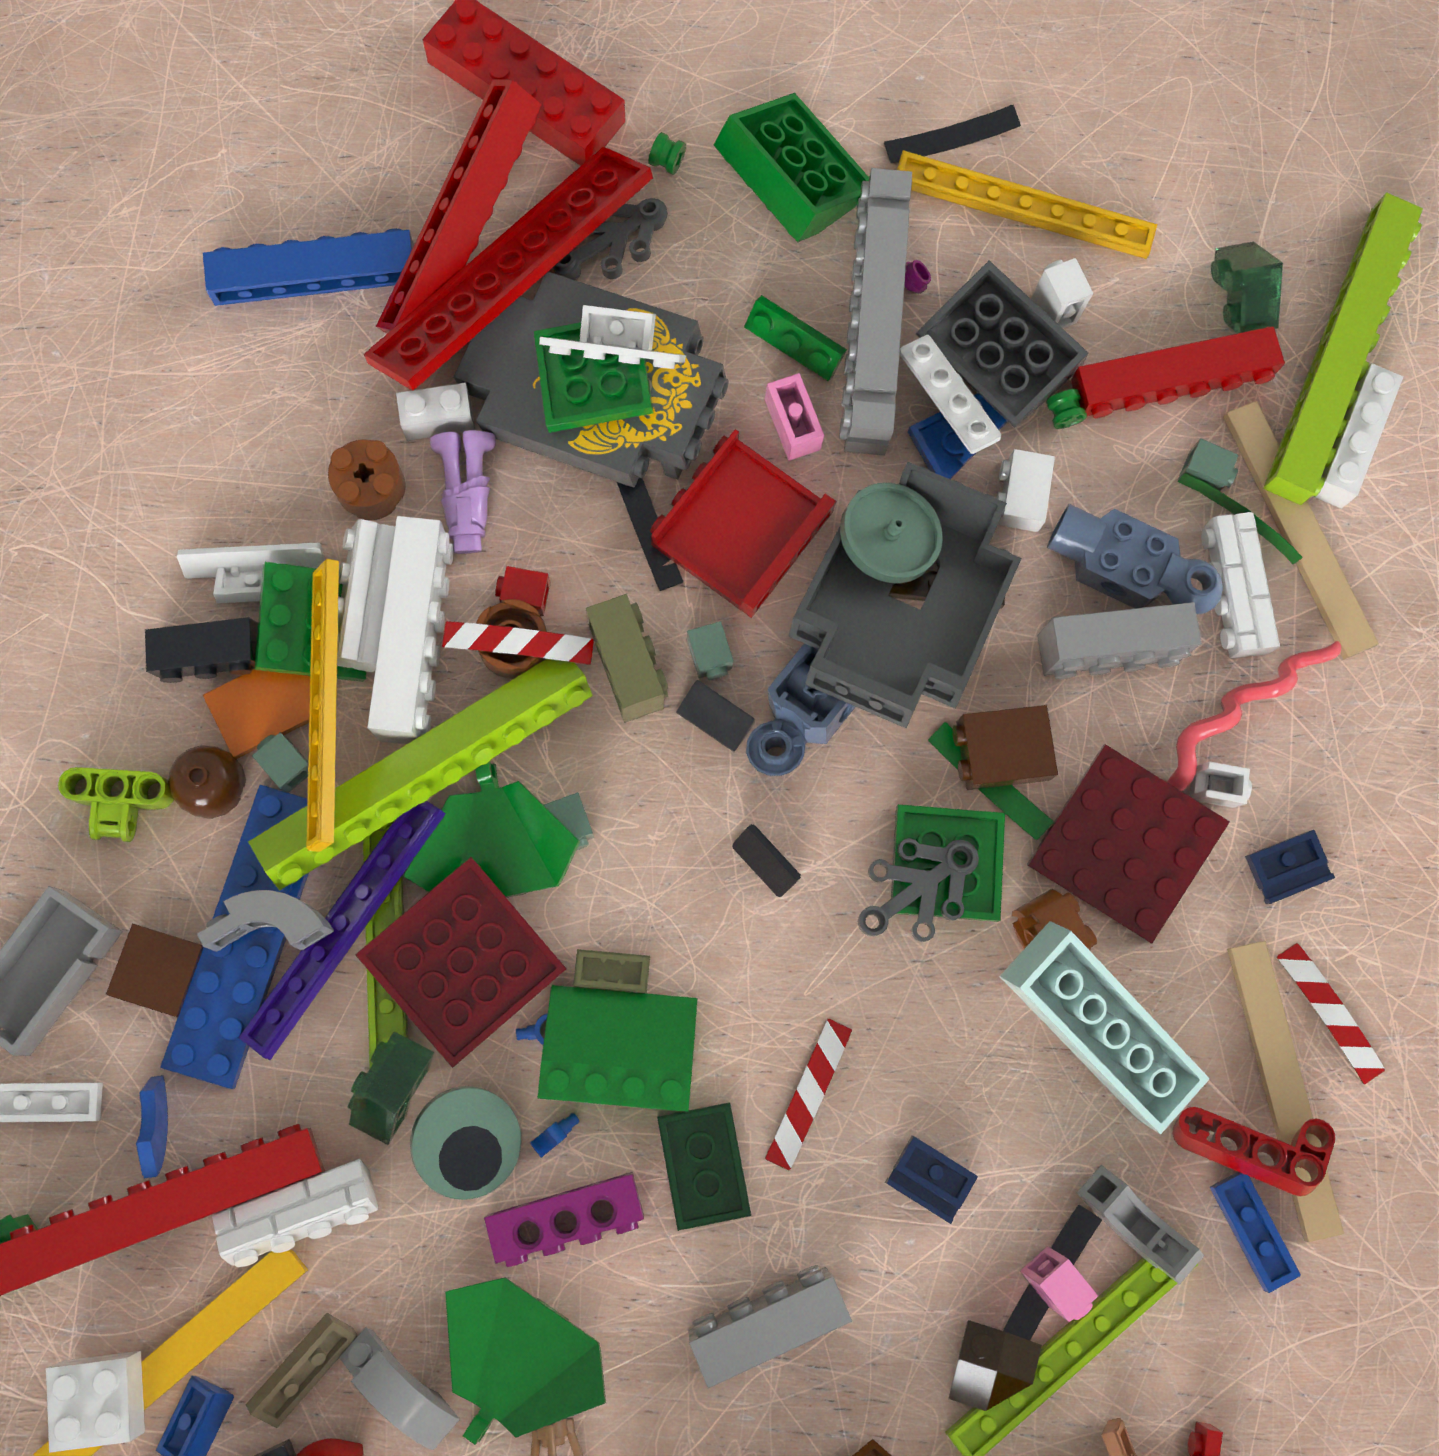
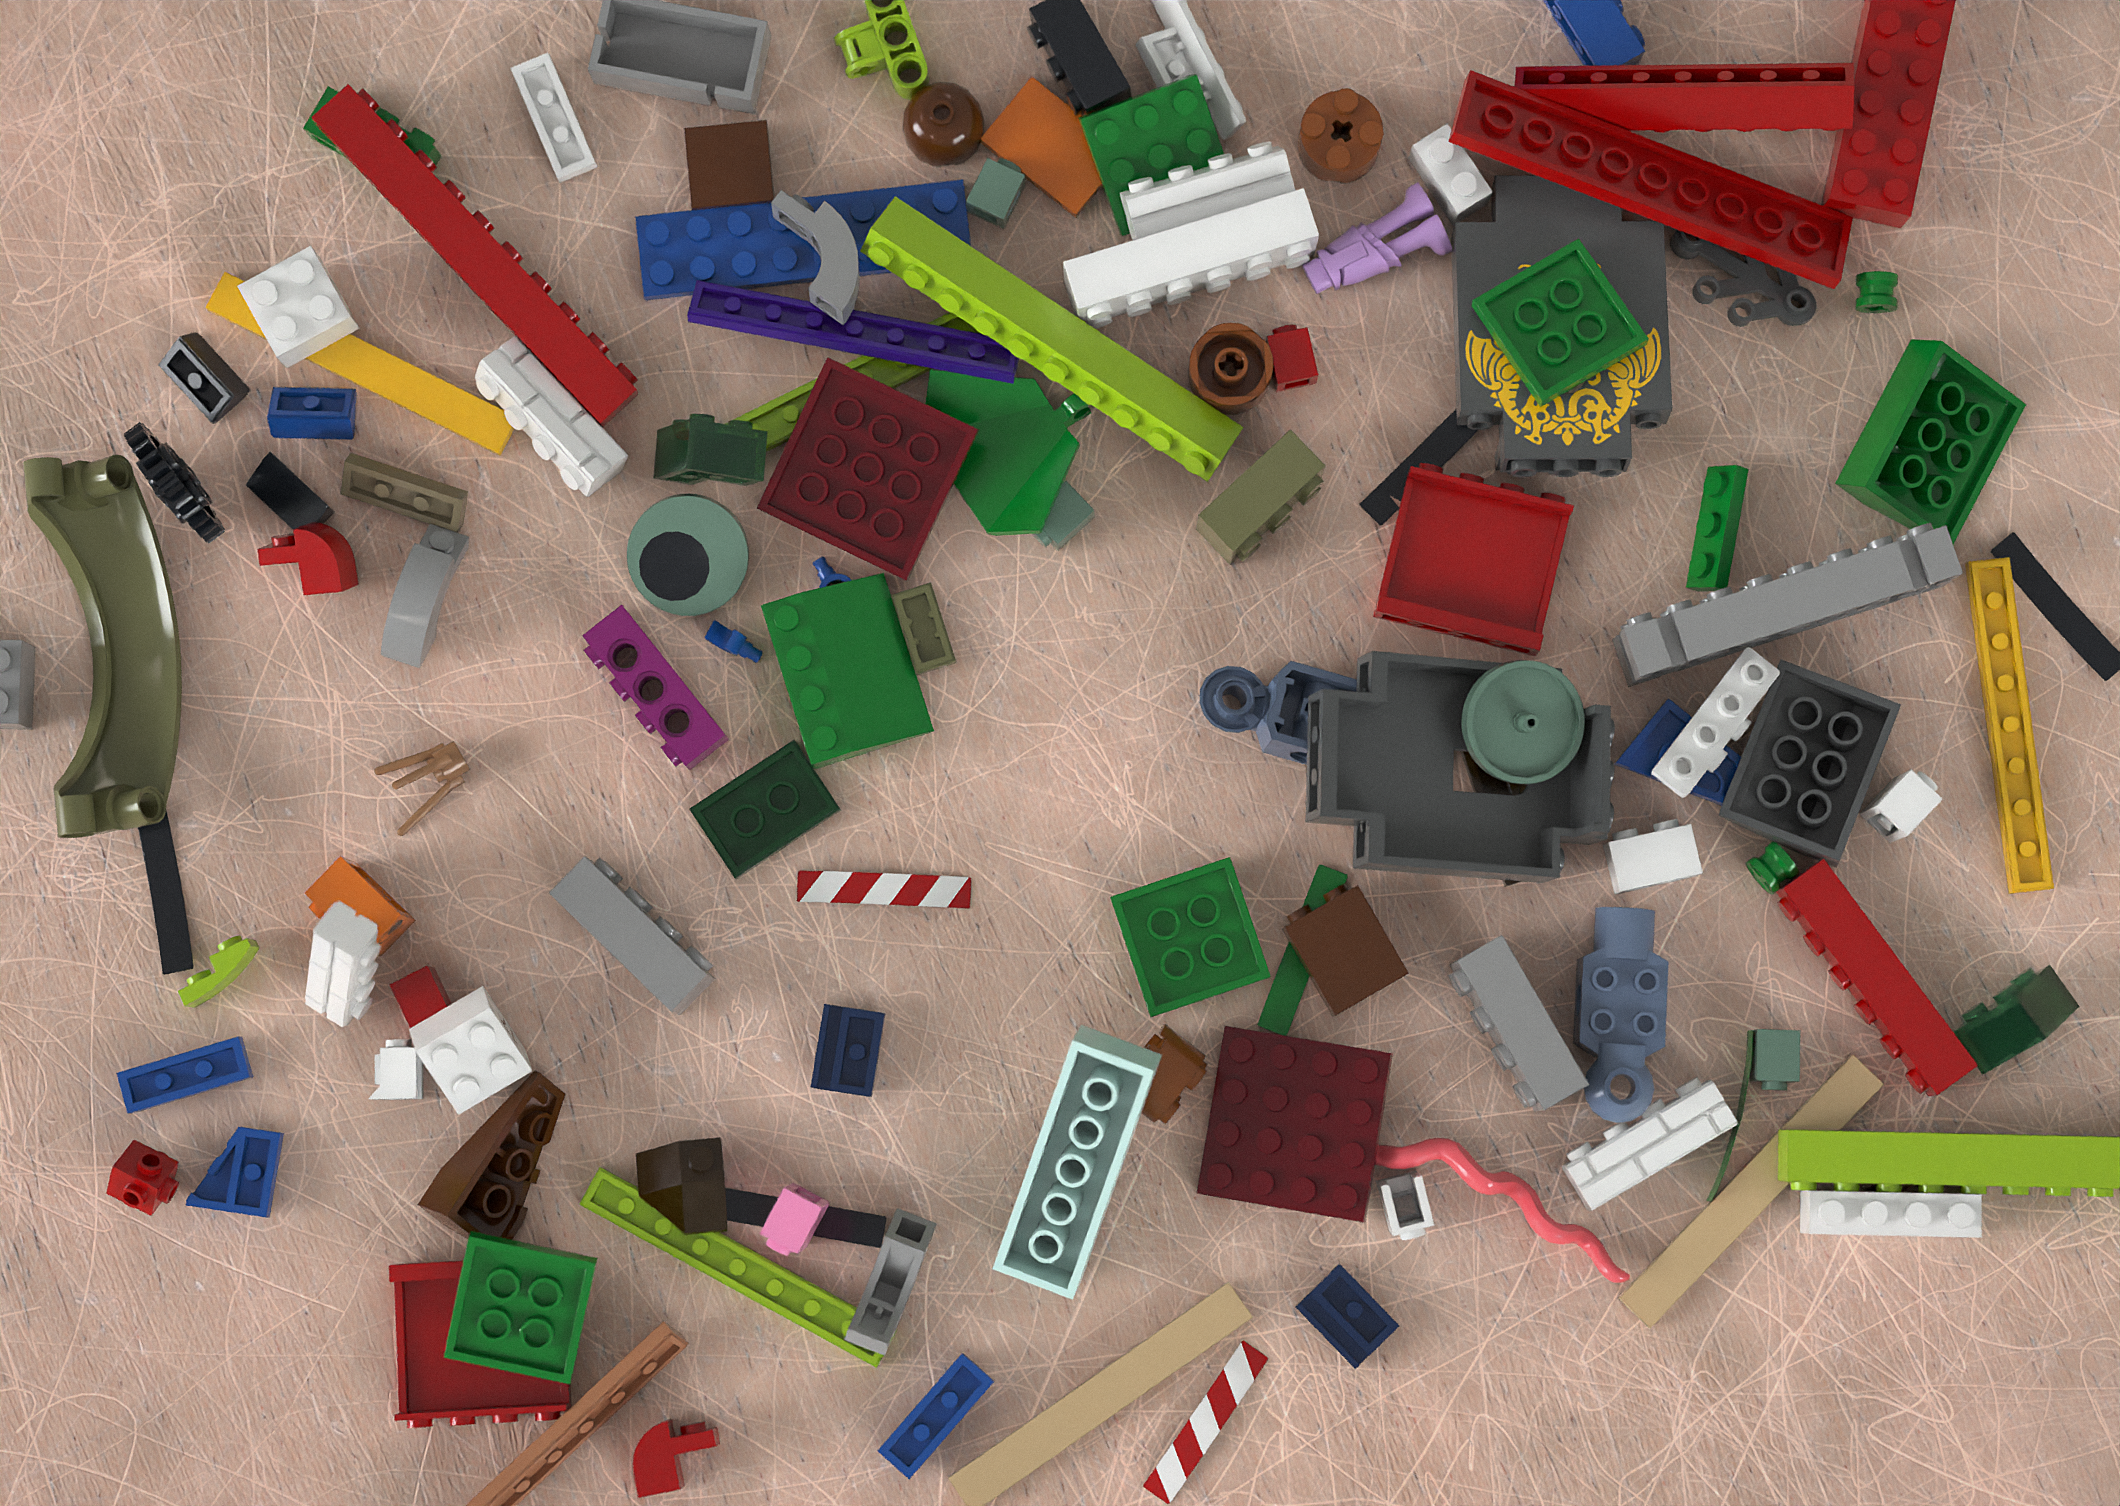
camera: 80 degrees right, 5 degrees up
(154, 1127) = (573, 239): blue tile -> none
(323, 707) = (1068, 205): yellow tile -> none
(518, 642) = (1226, 376): sticker -> none
(519, 1359) = (500, 699): green panel -> none
(618, 333) = (1604, 328): white bracket -> none
(710, 651) = (1311, 585): sand green brick -> none
(715, 715) = (1243, 622): black slope -> none
(766, 860) = (1109, 742): black slope -> none
(794, 416) = (1619, 564): bright pink brick -> none
(916, 277) = (1856, 633): magenta plate -> none
(922, 884) = (1152, 916): dark grey plant -> none
(1250, 1142) = (1024, 1374): red beam -> none

